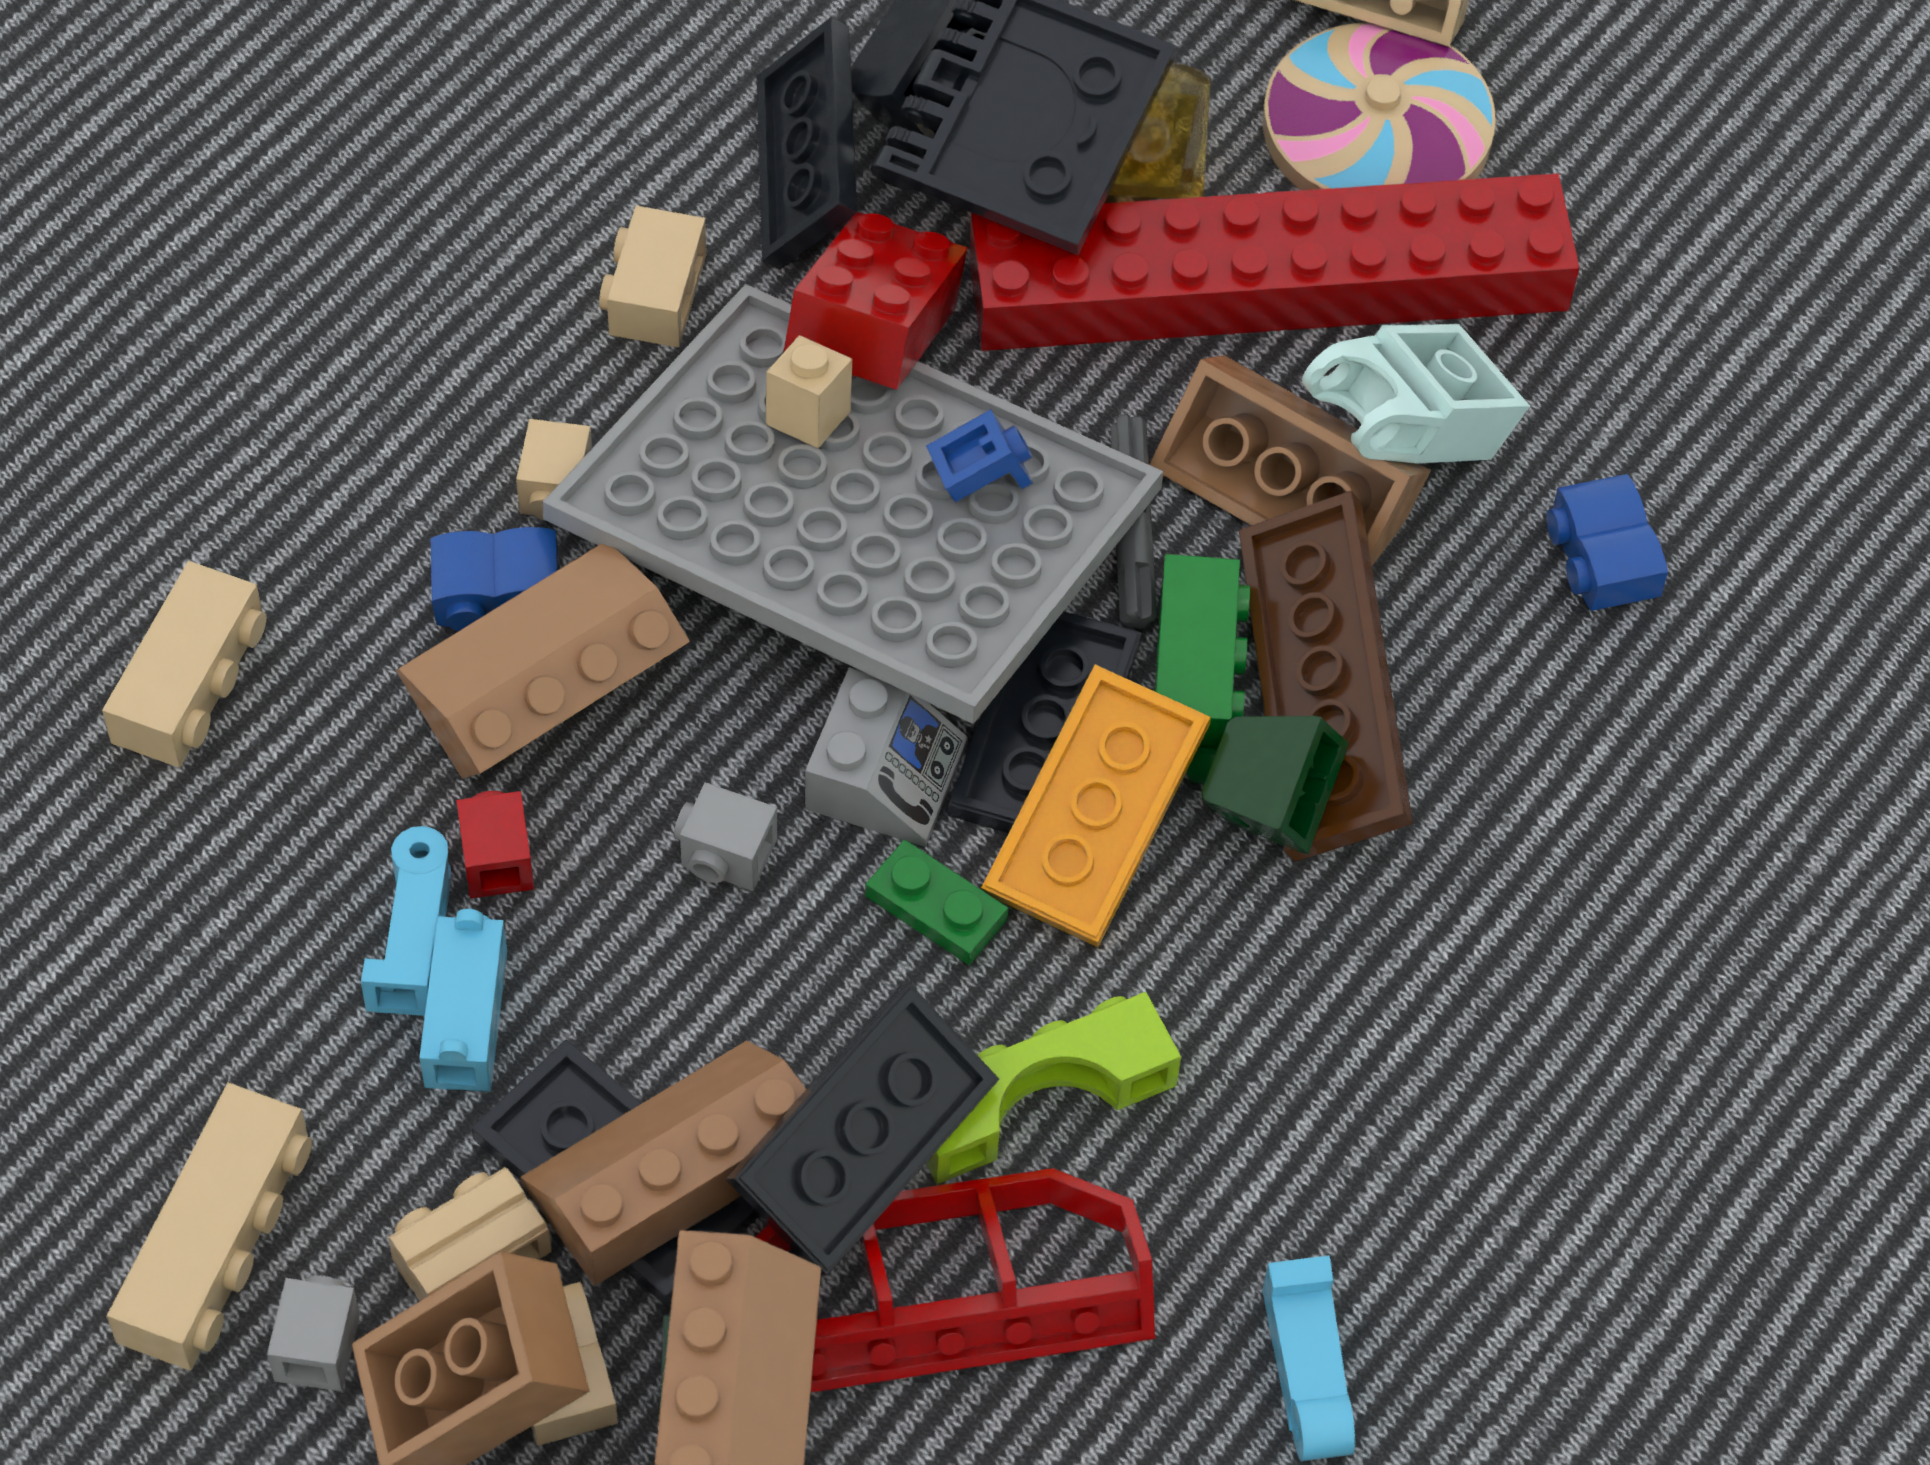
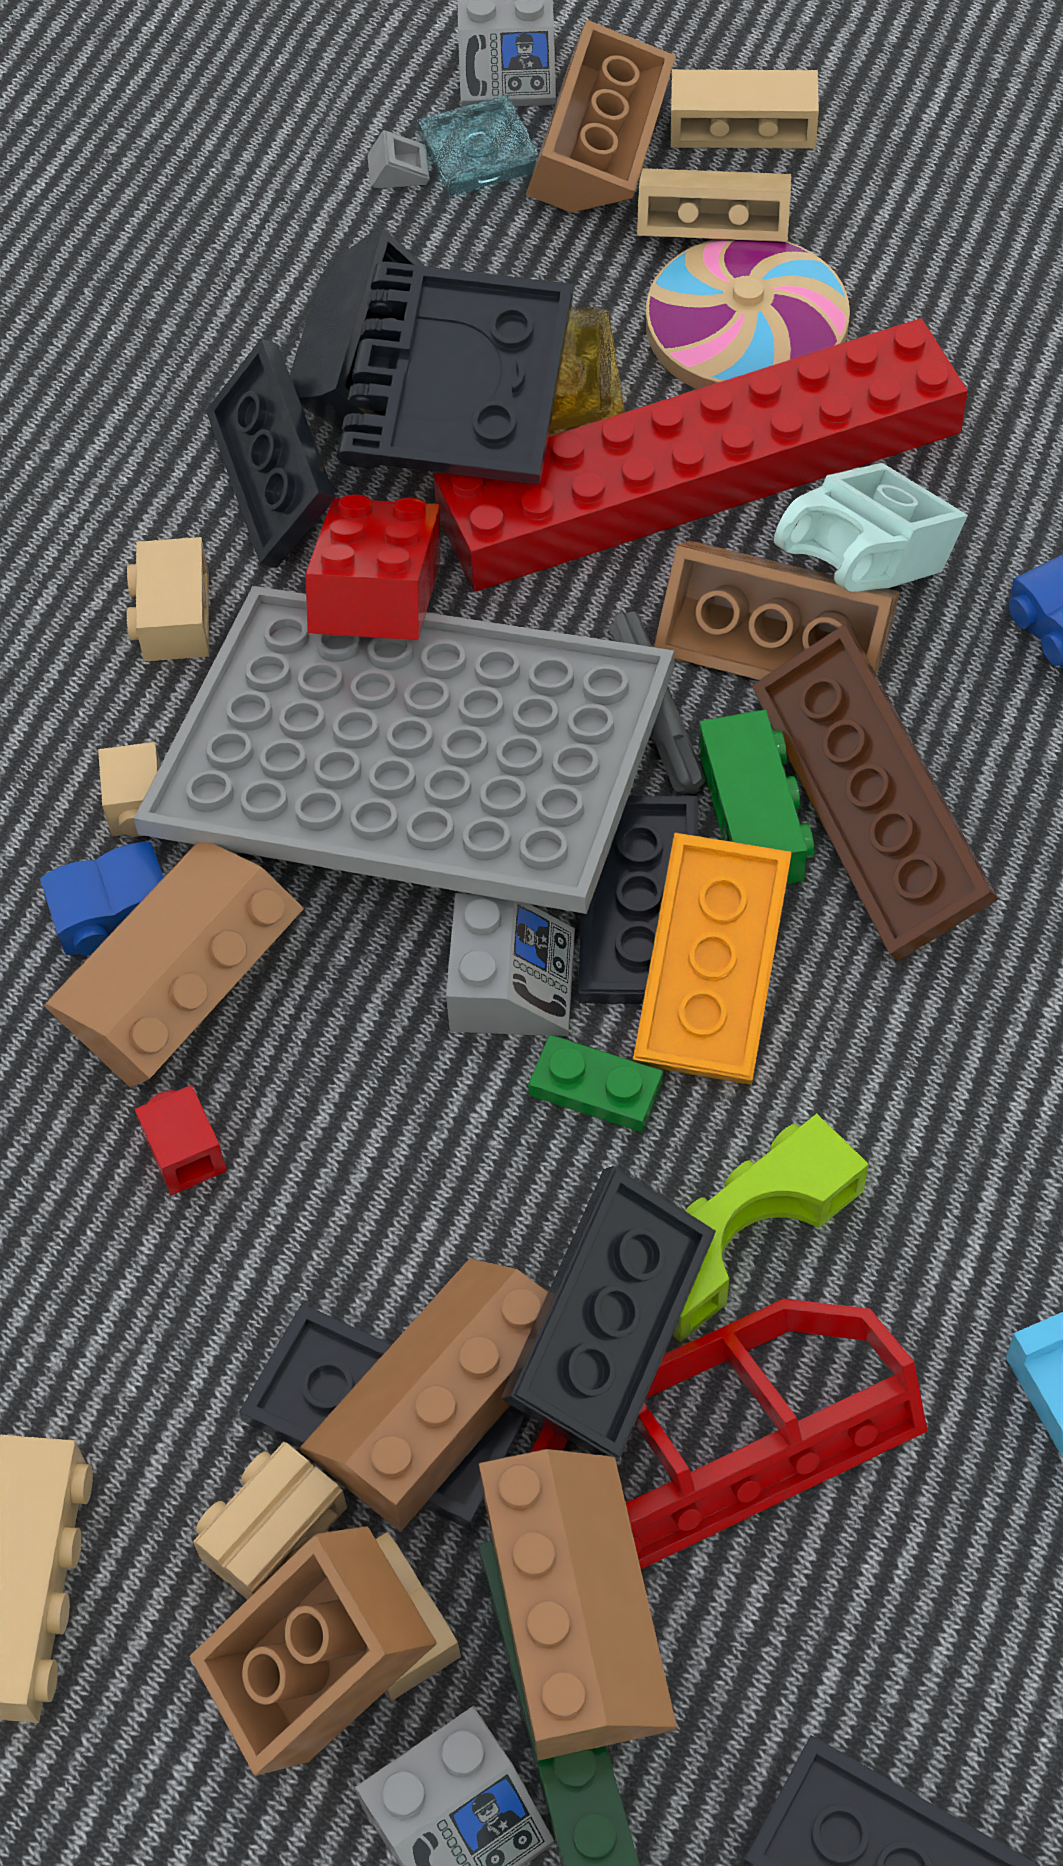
camera: 10 degrees left, 0 degrees up
(314, 1333) = (148, 1653): light grey brick -> none
(421, 895) = (135, 1283): medium azure leg -> none
(463, 1002) = (195, 1295): medium azure brick -> none
(726, 836) = (389, 1075): light grey brick -> none
(808, 391) = (343, 660): tan brick -> none
(979, 455) = (513, 676): blue bracket -> none
(1272, 775) = (859, 890): dark green torso -> none

